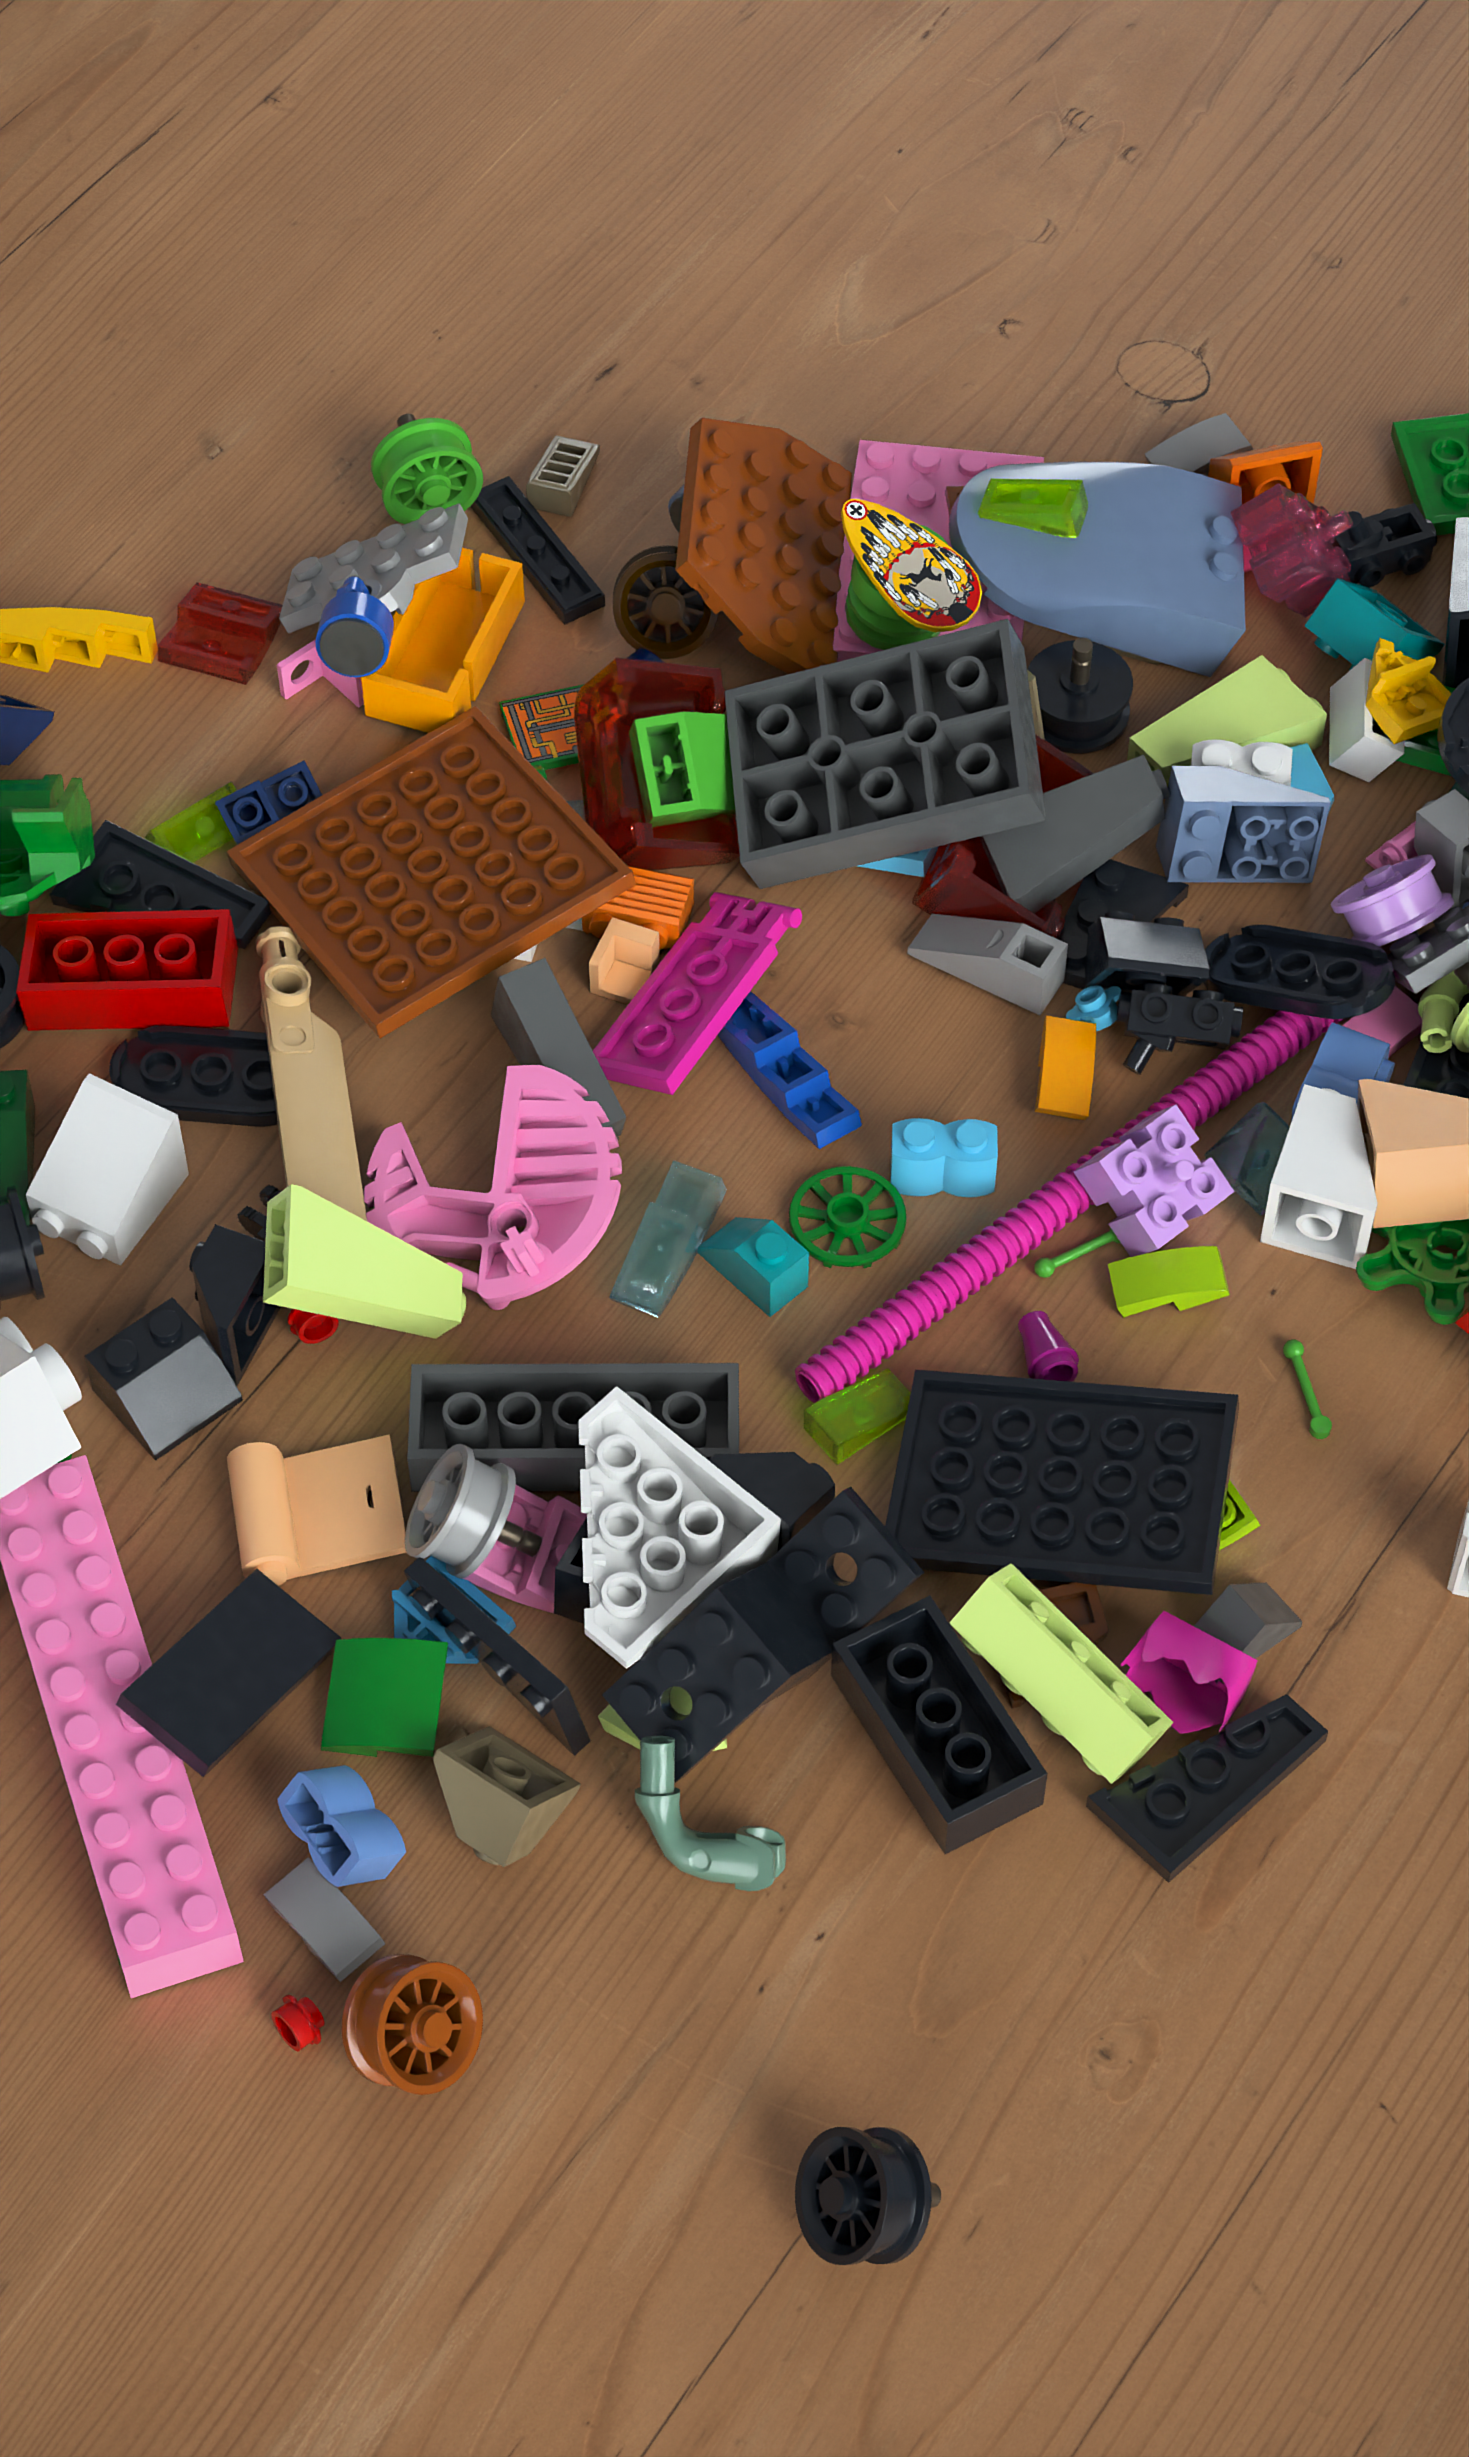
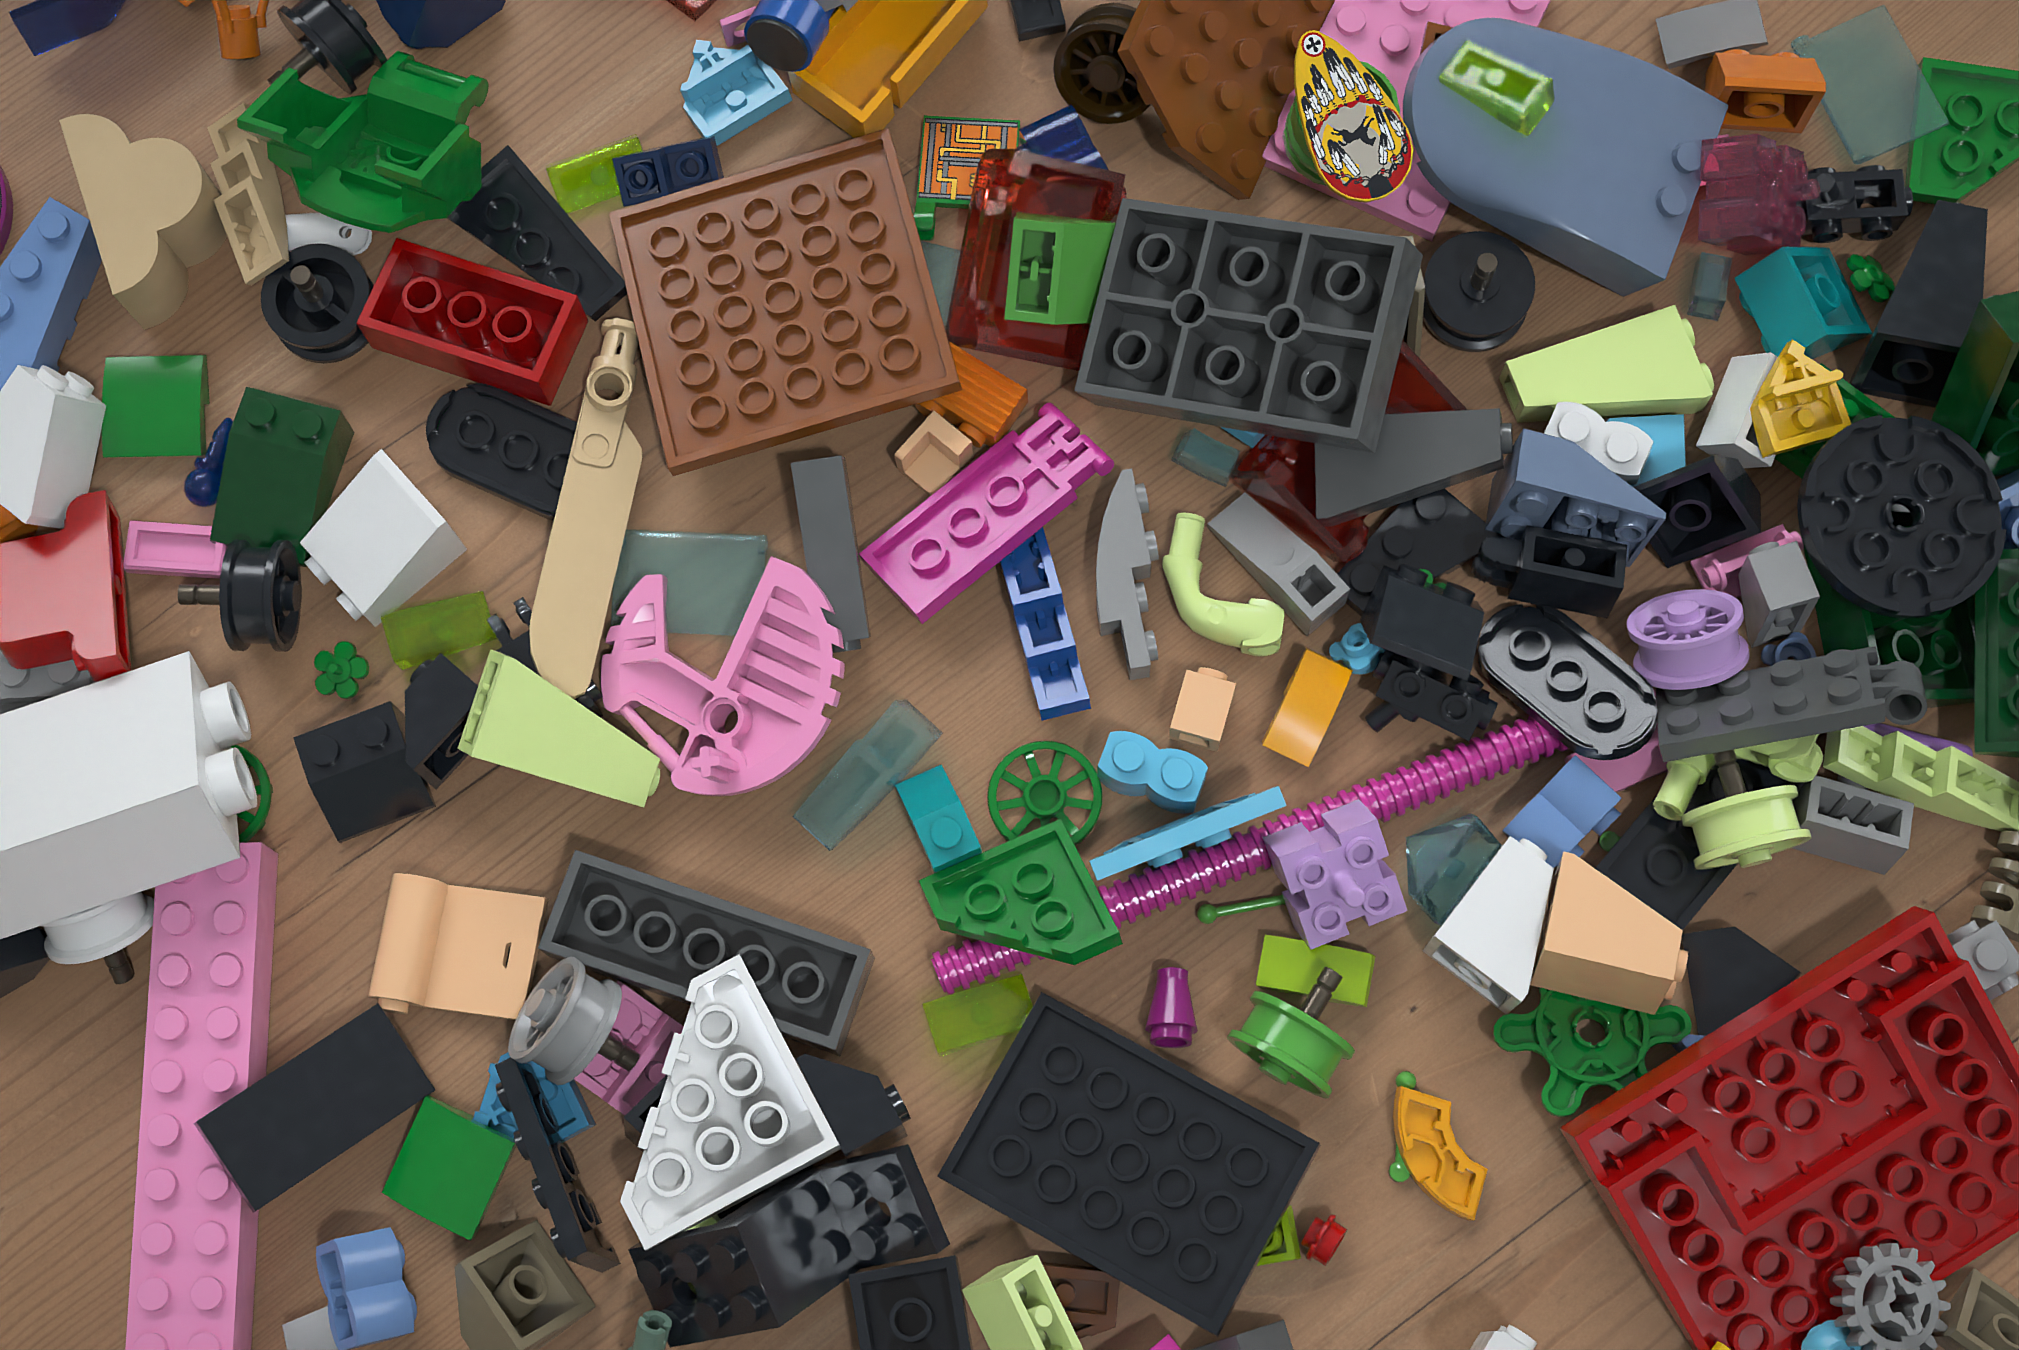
camera: 25 degrees right, 20 degrees up
(101, 1309) = (340, 670): none -> green plant
(168, 1247) = (437, 628): none -> clear neon green slope
(304, 727) = (730, 91): none -> medium azure slope
(448, 1126) = (706, 574): none -> clear light blue piece
(844, 1011) = (1122, 557): none -> light grey slope
(868, 1283) = (1026, 898): none -> green plate
(883, 896) = (1206, 457): none -> clear light blue piece
(961, 1020) = (1250, 626): none -> yellowish green piece
(968, 1089) = (1202, 708): none -> light nougat brick
(1003, 1182) = (1202, 827): none -> medium azure wing
(1174, 1328) = (1292, 1041): none -> bright green wheel
(1247, 889) = (1555, 570): none -> black hinge
(1274, 1499) = (1323, 1239): none -> red plate
(1284, 642) = (1709, 286): none -> clear light blue piece
(1348, 1399) = (1433, 1155): none -> light orange tile
(1362, 456) = (1872, 85): none -> clear light blue piece
(1363, 799) = (1705, 508): none -> black slope
(1423, 599) = (1869, 276): none -> green plant

